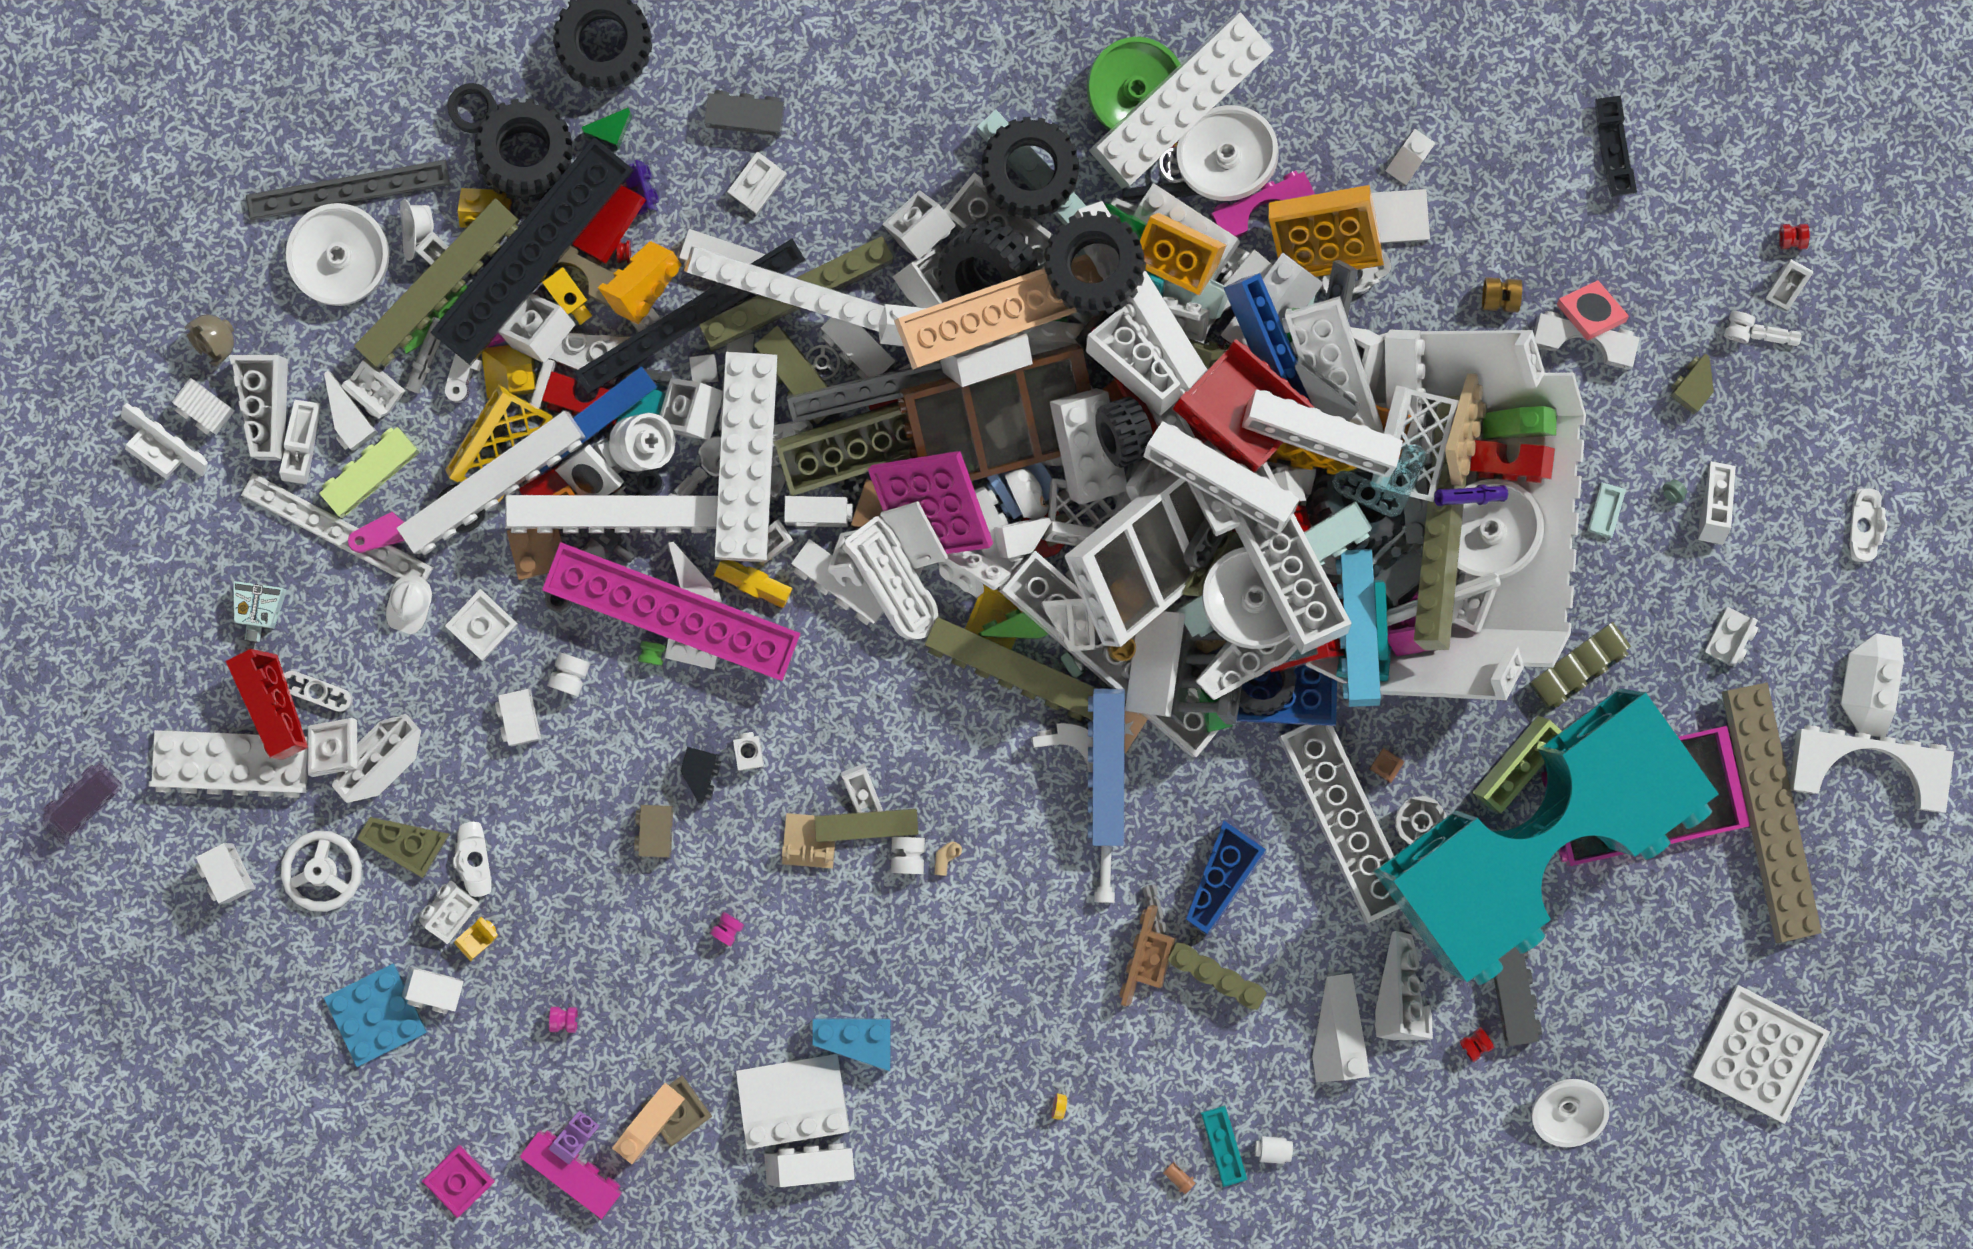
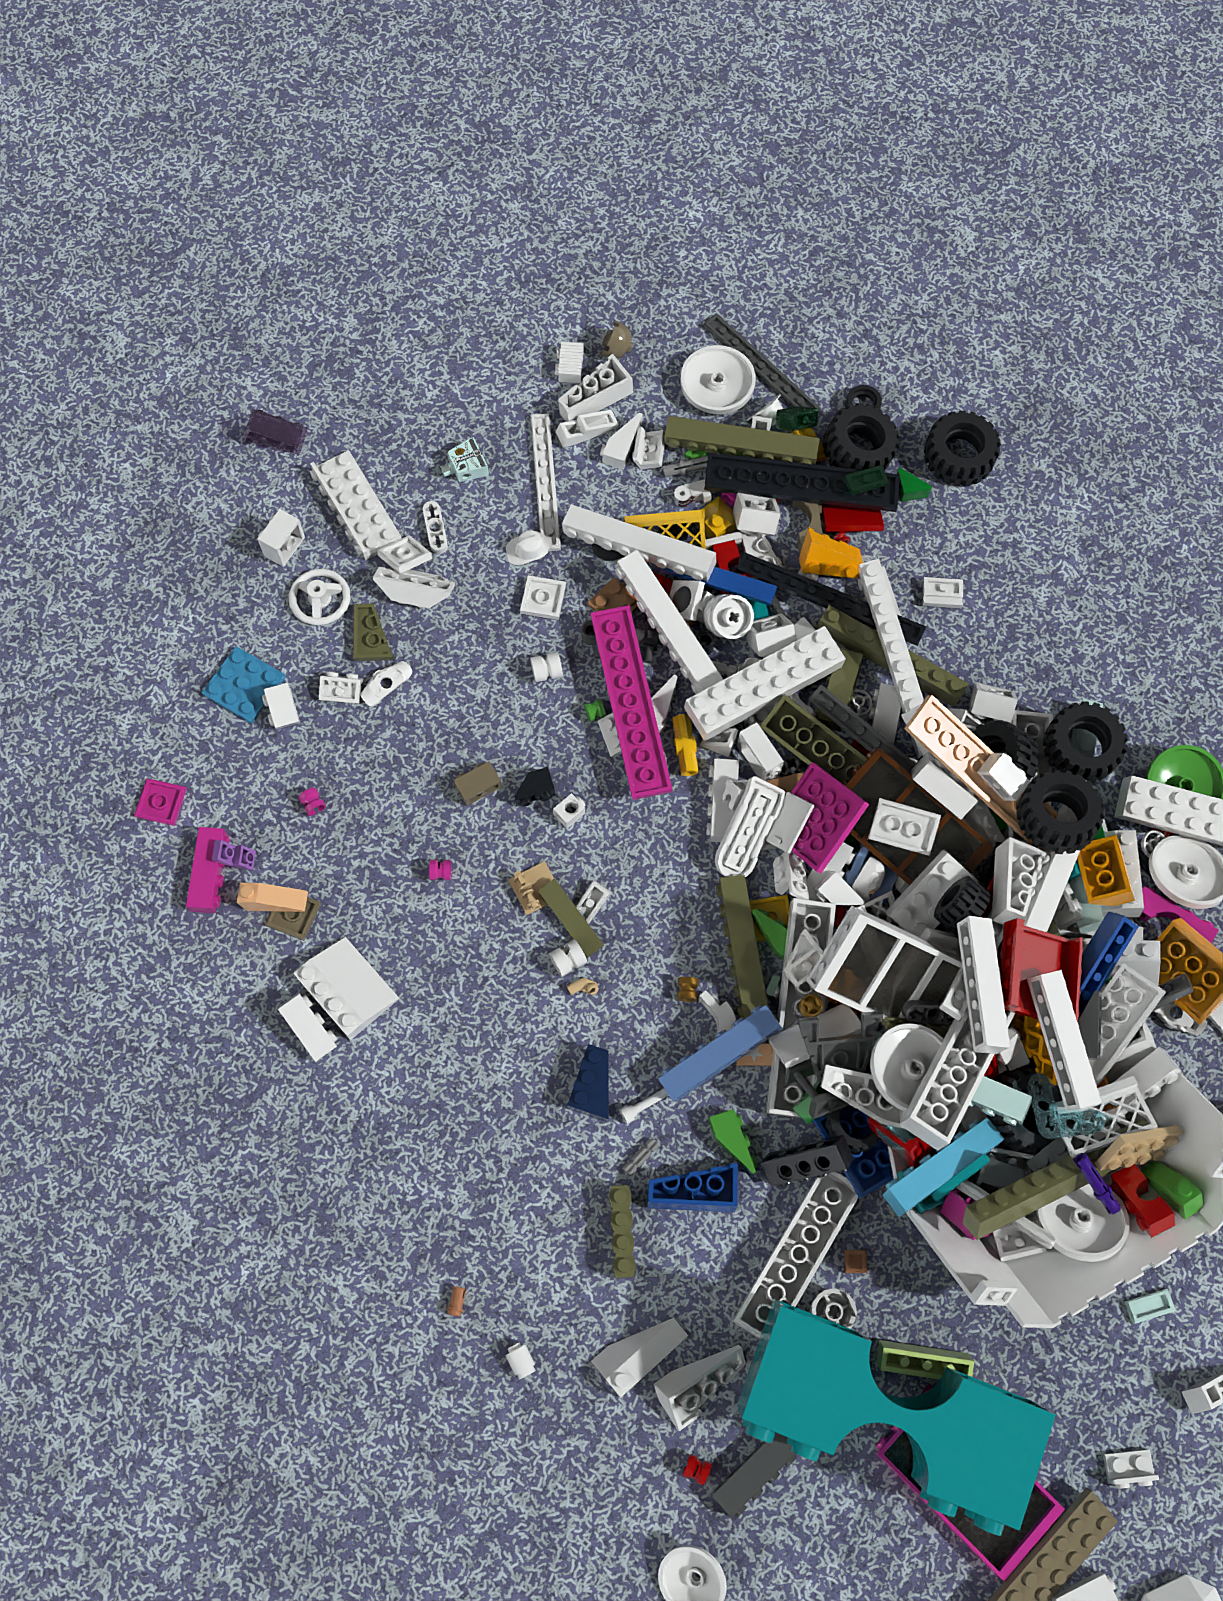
camera: 60 degrees right, 15 degrees down
(158, 447) = (528, 351): white bracket -> none
(268, 702) = (409, 497): red wedge -> none
(369, 472) = (595, 476): yellowish green brick -> none
(377, 534) = (557, 501): dark pink piece -> none
(447, 200) = (796, 418): none -> clear green brick
(476, 938) = (333, 715): yellow bracket -> none
(518, 717) = (497, 654): white brick -> none
(559, 285) = (789, 520): yellow torso -> none
(580, 182) = (866, 480): none -> clear green plate
(640, 179) = (893, 521): dark purple hinge -> none
(744, 113) = (980, 558): dark grey brick -> none
(856, 1038) = (417, 1002): dark azure wedge -> none
(1000, 424) = (904, 826): none -> white tile
(1017, 753) = (687, 989): none -> pearl gold wheel
(1022, 294) = (1004, 776): none -> white brick
(1054, 914) = (591, 1086): none -> dark blue wedge
(1059, 1106) = (454, 1178): yellow tile -> none
(1150, 957) = (603, 1173): medium nougat bracket -> none
(1190, 808) = (728, 1134): none -> bright green slope
(1191, 653) = (843, 1051): none -> dark grey wing
(1224, 1146) = (500, 1321): teal tile -> none
(1267, 752) = (777, 1163): none -> black brick
(1580, 664) = (1027, 1360): olive brick -> none
(1674, 491) = (1202, 1349): sand green plate -> none

